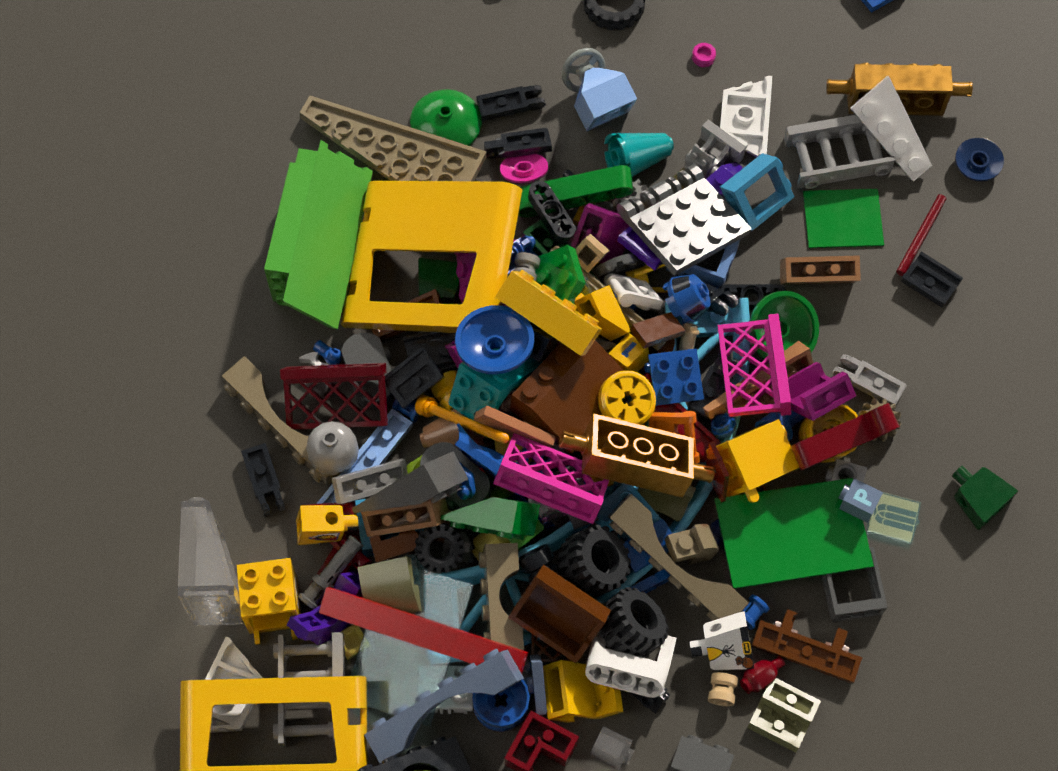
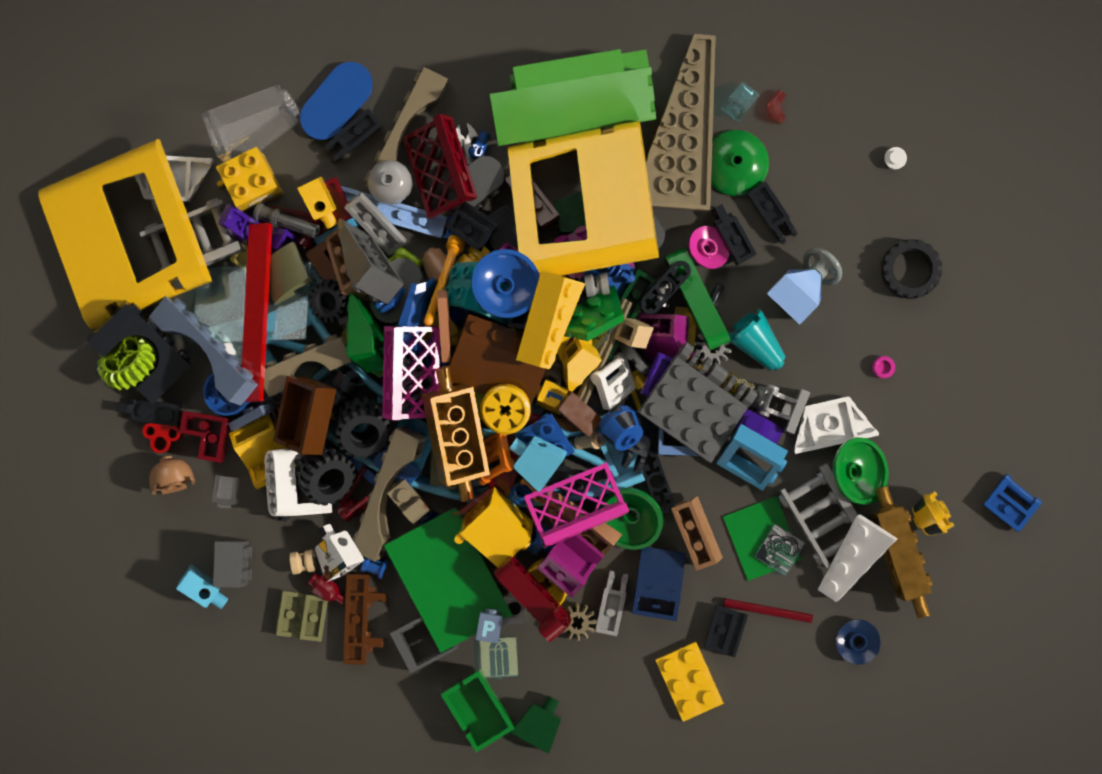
camera: 70 degrees right, 20 degrees up
(217, 478) = (336, 101): none -> blue tile
(386, 95) = (740, 101): none -> clear light blue bracket
(405, 68) = (774, 107): none -> clear red arm
(678, 616) = (351, 507): none -> dark red plant
(694, 384) = (537, 460): none -> medium azure torso
(803, 101) = (859, 470): none -> green dish
(860, 204) = (779, 549): none -> piece
(863, 325) = (658, 583): none -> dark blue slope
(870, 49) = (931, 515): none -> yellow cone
(948, 550) = (479, 708): none -> green piece
(975, 333) = (689, 681): none -> yellow plate

